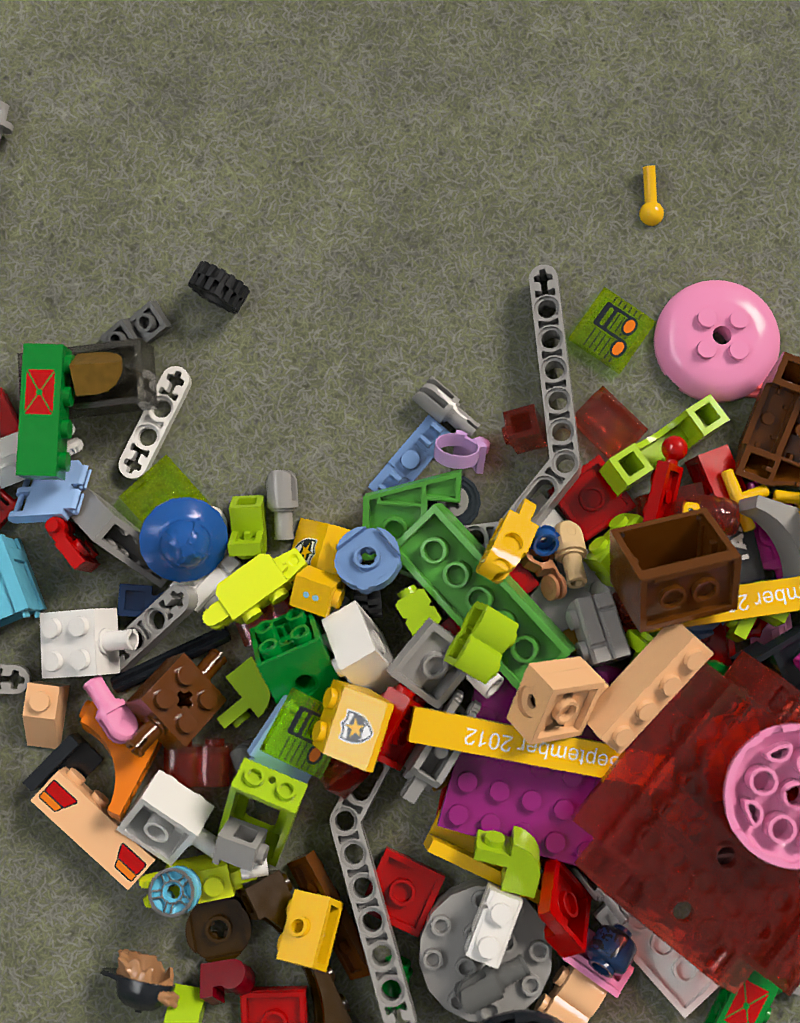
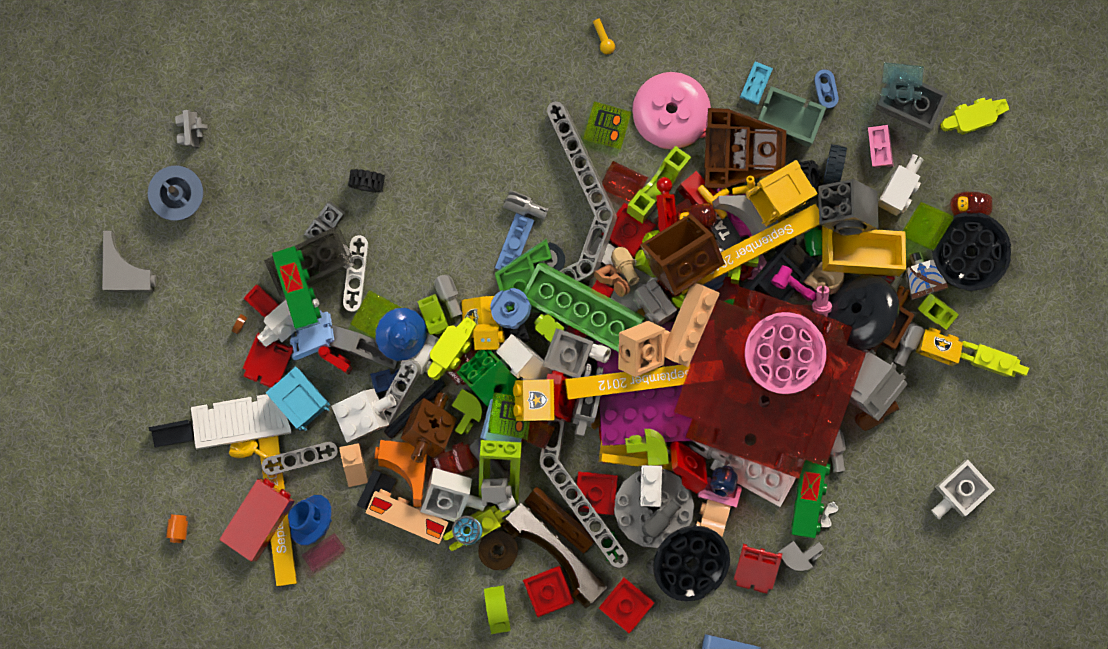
camera: 20 degrees left, 0 degrees up
(95, 372) = (317, 255): pearl gold brick -> none
(112, 714) = (394, 445): bright pink arm -> none
(143, 981) = (465, 592): hair -> none
(223, 978) = (511, 575): dark red leg -> none
(309, 930) = (550, 526): yellow brick -> none
(466, 451) = (546, 228): lavender piece -> none
(481, 642) = (590, 331): lime brick -> none
(508, 543) = (587, 271): yellow piece -> none
(524, 429) = (574, 203): clear red brick -> none
(547, 546) = (610, 266): blue plate -> none

